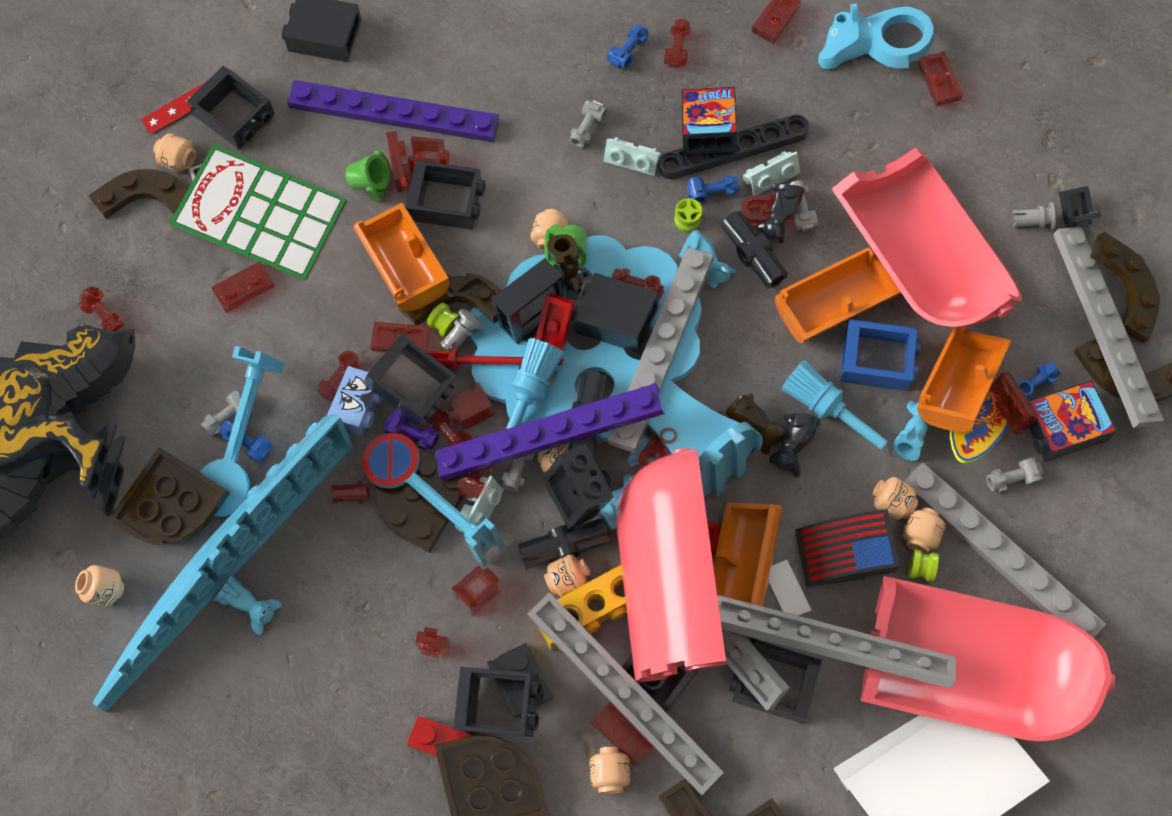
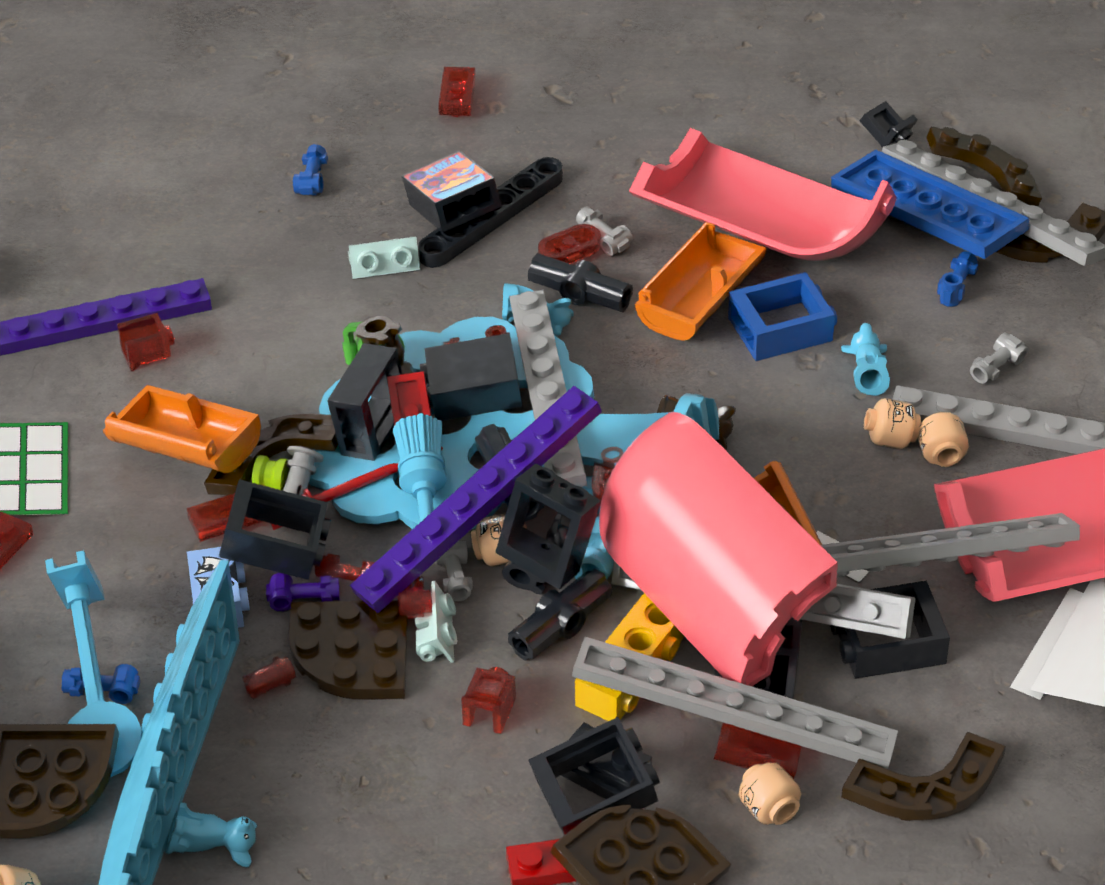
camera: 30 degrees left, 25 degrees down
(213, 424) = (64, 653): light grey bar -> none
(328, 388) = (174, 593): clear red bar -> none
(370, 175) = (87, 378): bright green piece -> none
(394, 461) = (310, 617): piece -> none
(397, 151) = (111, 360): clear red plate -> none
(431, 643) = (475, 765): clear red plate -> none
(448, 174) = (192, 346): black window -> none
(470, 407) = (359, 538): clear red window -> none
(543, 222) = (330, 352): light nougat head -> none
(566, 575) = (581, 625): light nougat head -> none
(593, 112) = (312, 238): light grey bar -> none
(677, 55) = (370, 158): clear red bar -> none
(688, 208) = (485, 282): lime wheel -> none
(698, 190) = (485, 259): blue bar -> none
(778, 171) = (551, 214): light aqua hinge -> none
(784, 206) = (588, 224): black animal -> none
(799, 433) = (749, 415): black animal -> none
(826, 400) = (755, 372): medium azure piece -> none
(847, 548) = (877, 485): slope -> none
(858, 35) = (553, 79): medium azure animal -> none
(923, 565) = (965, 464): lime wheel -> none
(940, 79) = (669, 79): clear red plate -> none
(961, 379) = (887, 292): orange container -> none
(984, 435) = (927, 328): shield -> none
(1012, 403) = (950, 294): clear red plate -> none
(1036, 217) = (857, 147): light grey pin -> none
(1056, 305) = (934, 204): none -> blue plate
(1070, 421) = (1015, 292): brick -> none

